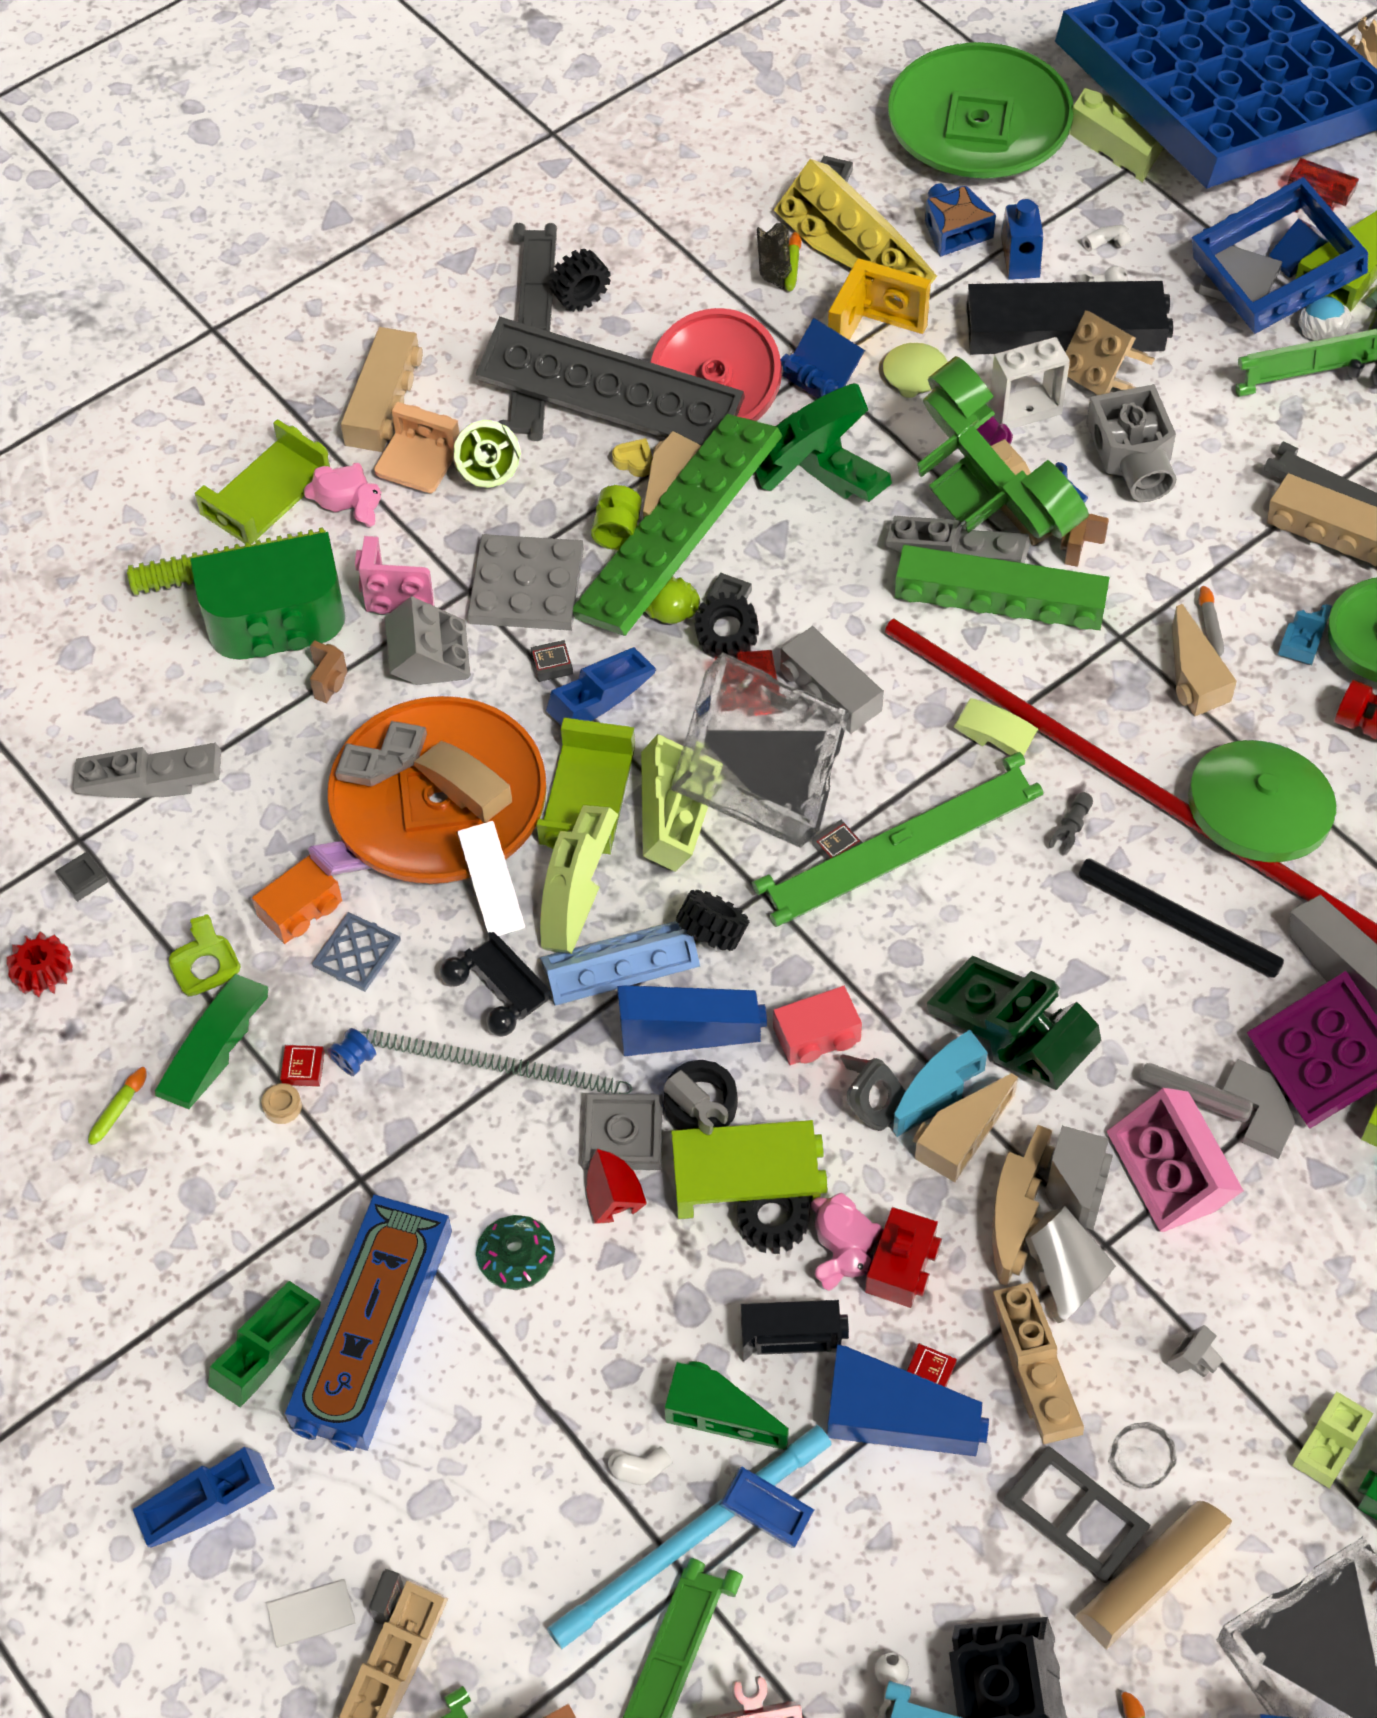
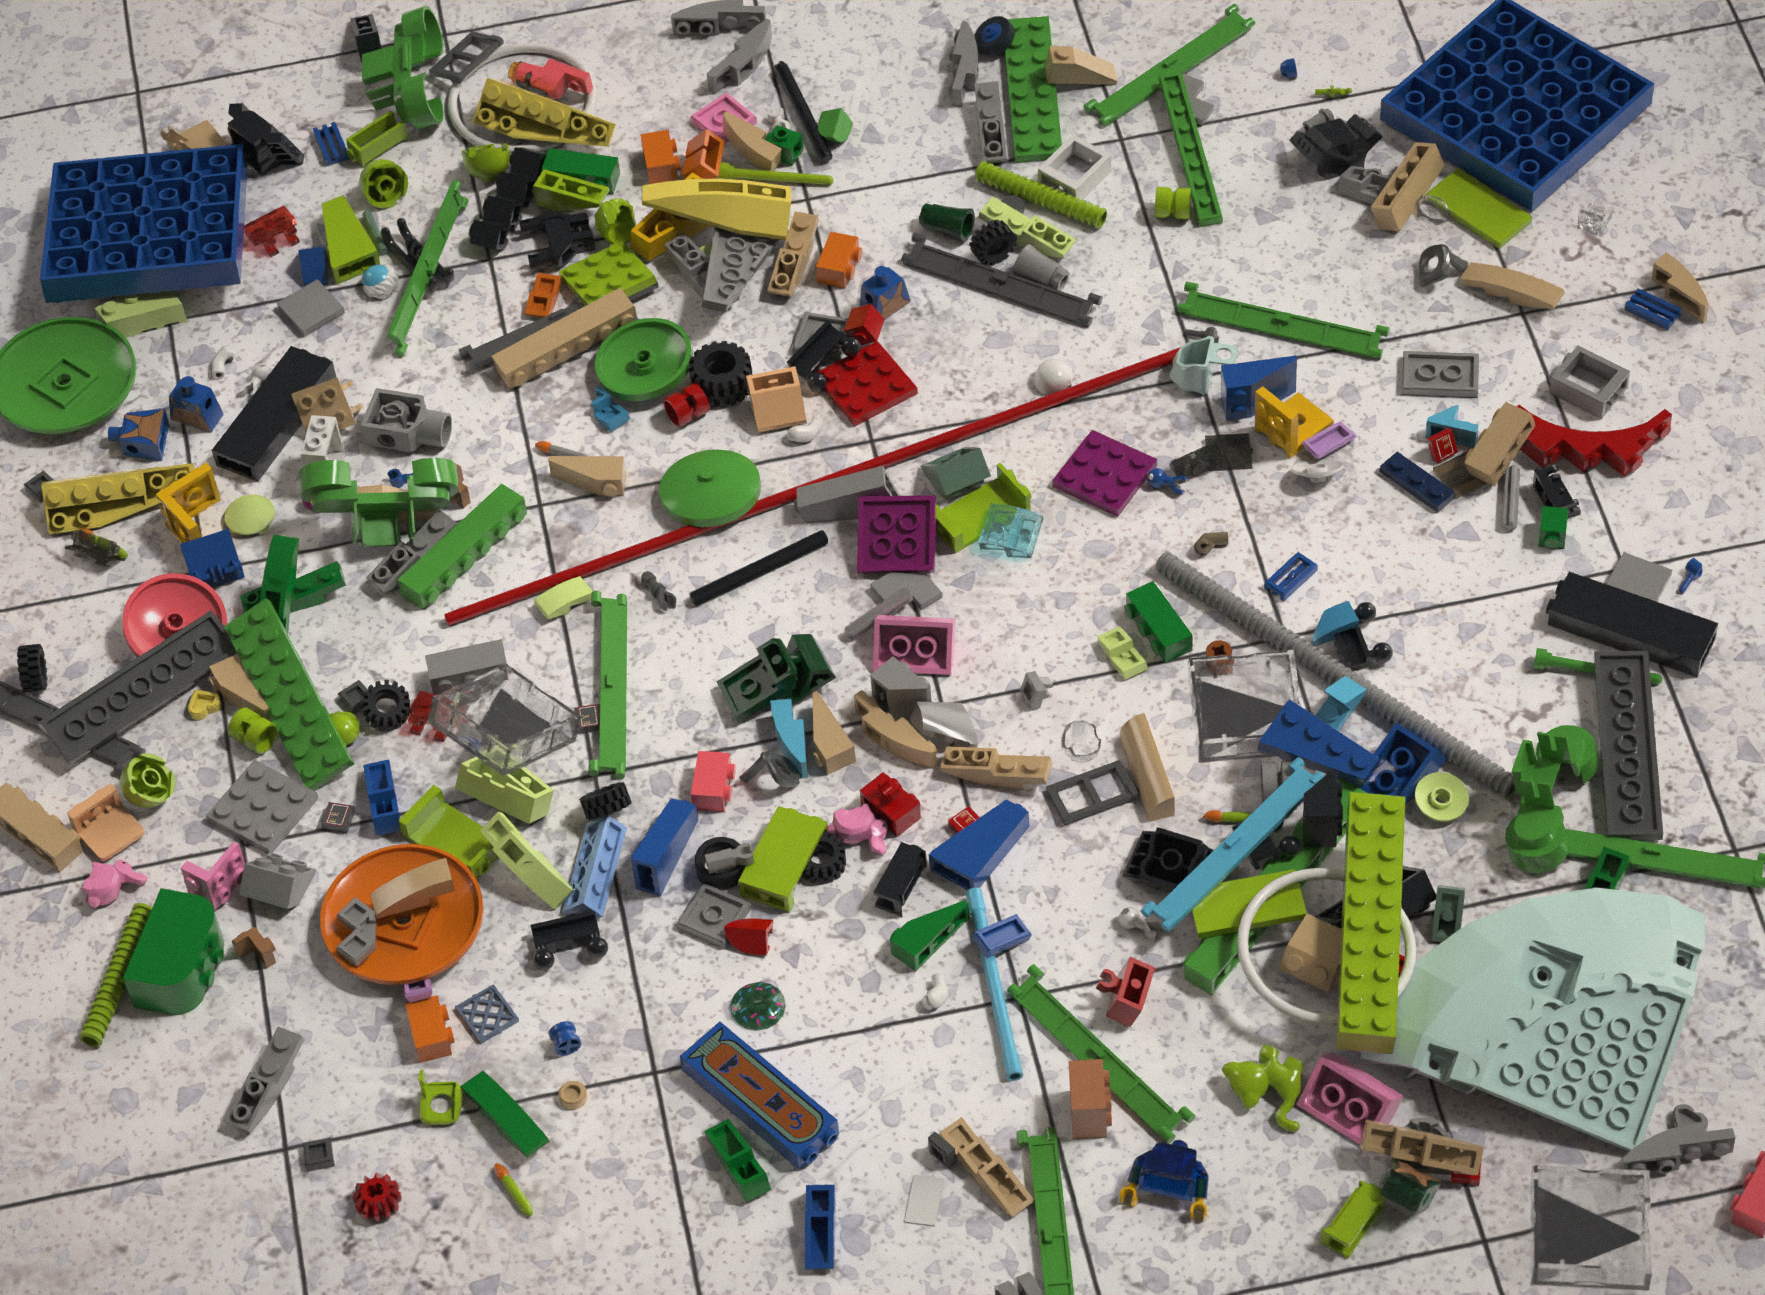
camera: 60 degrees left, 5 degrees down
(265, 487) = (63, 928): lime panel -> none
(302, 1065) = (553, 1073): red tile -> none
(490, 879) = (494, 908): tile -> none
(498, 1064) = (622, 965): sand green piece -> none
(1300, 292) = (320, 236): blue window -> none

